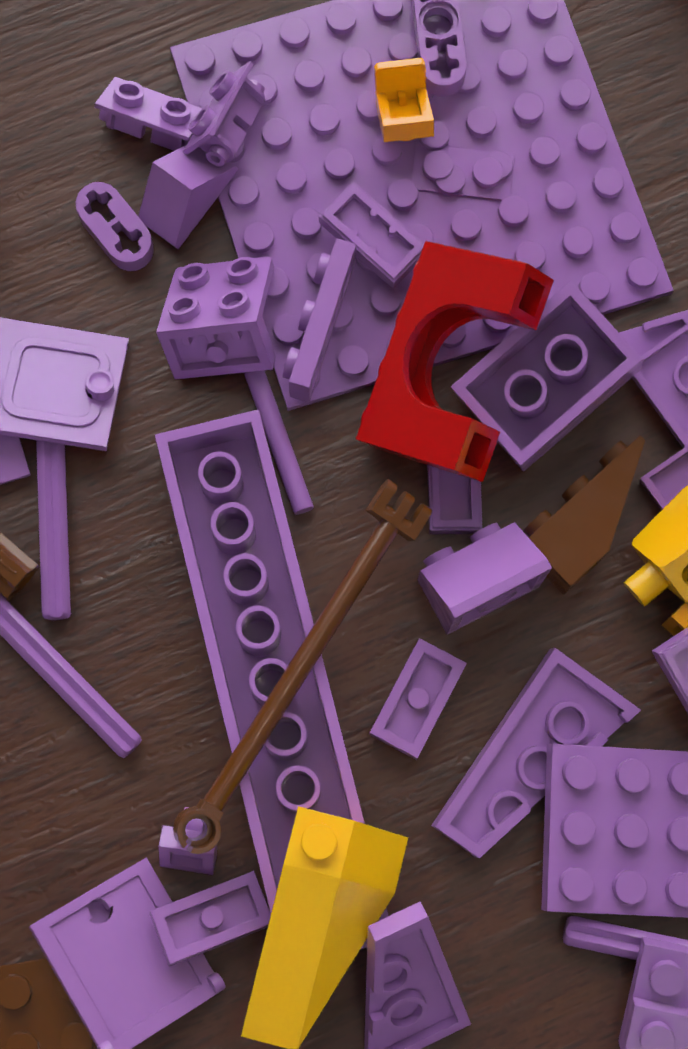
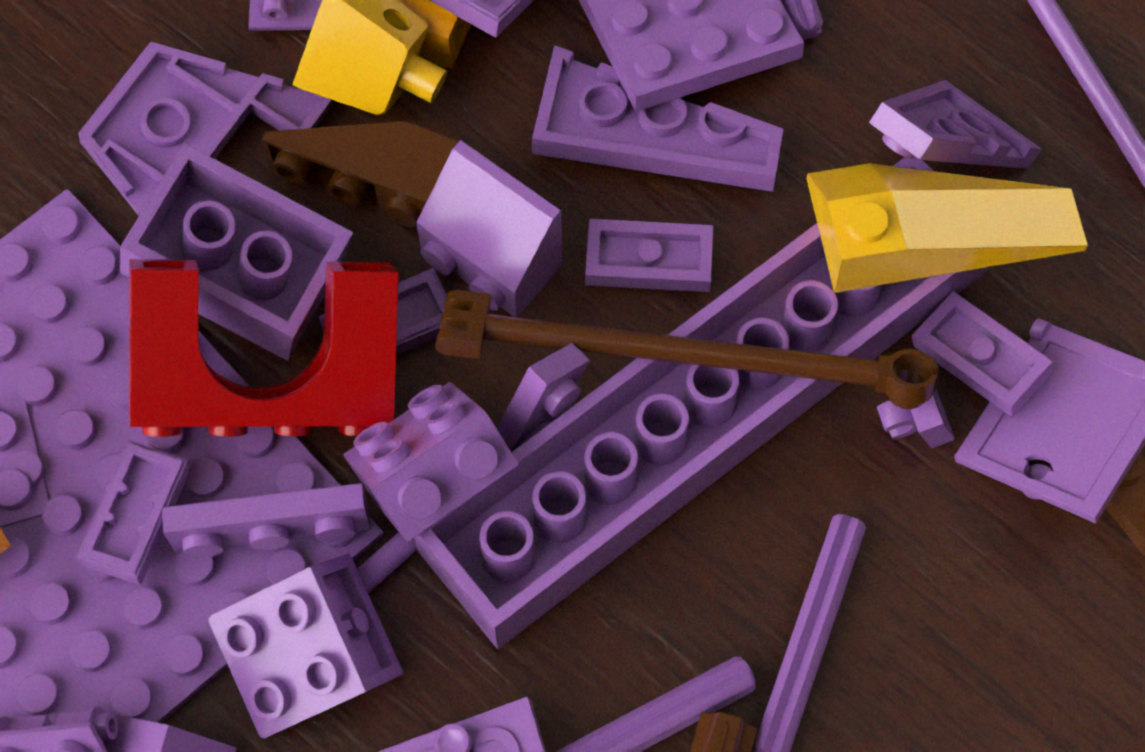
camera: 110 degrees left, 10 degrees down
(305, 443) = (429, 458): none -> medium lavender brick
(315, 546) = (543, 395): none -> medium lavender plate

